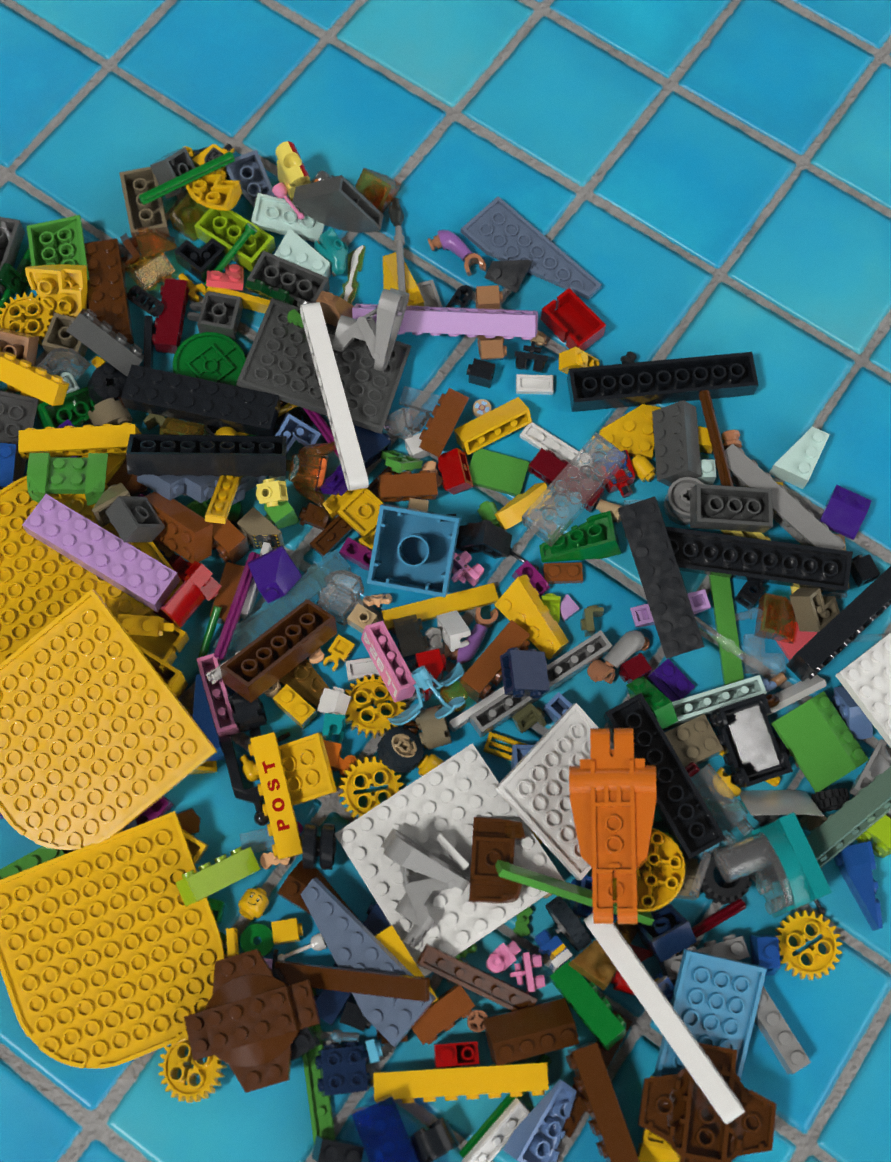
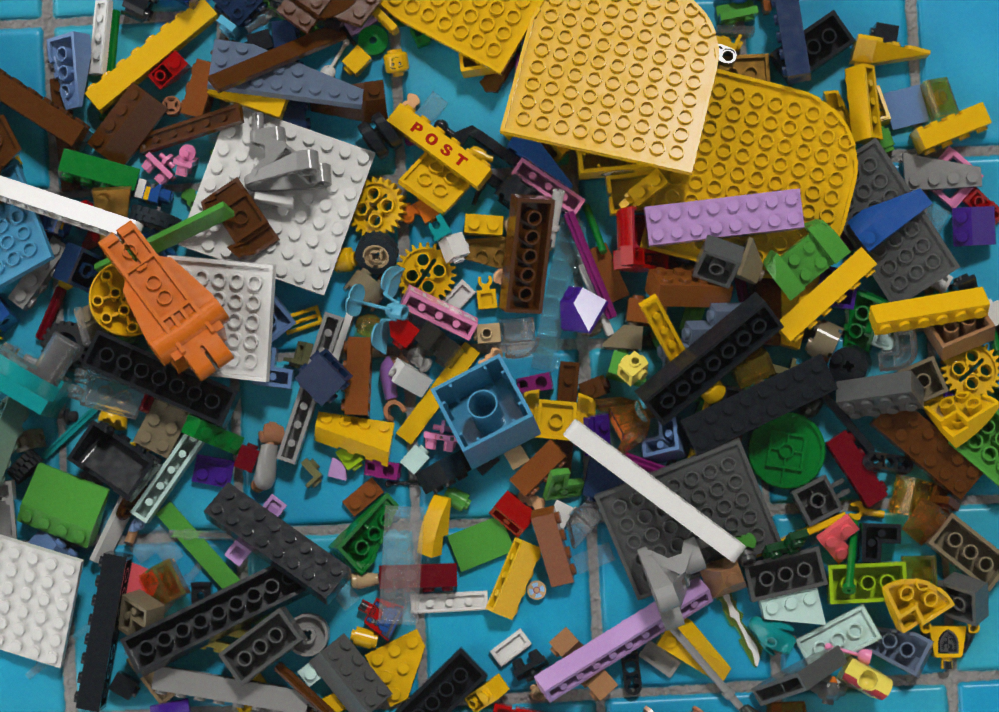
camera: 145 degrees right, 15 degrees up
(186, 178) = (945, 595): green axle -> none
(217, 876) = (433, 56): lime brick -> none
(481, 373) = (560, 620): black brick -> none
(498, 568) = (415, 458): none -> light aqua brick
(779, 802) = (59, 429): white sticker -> none

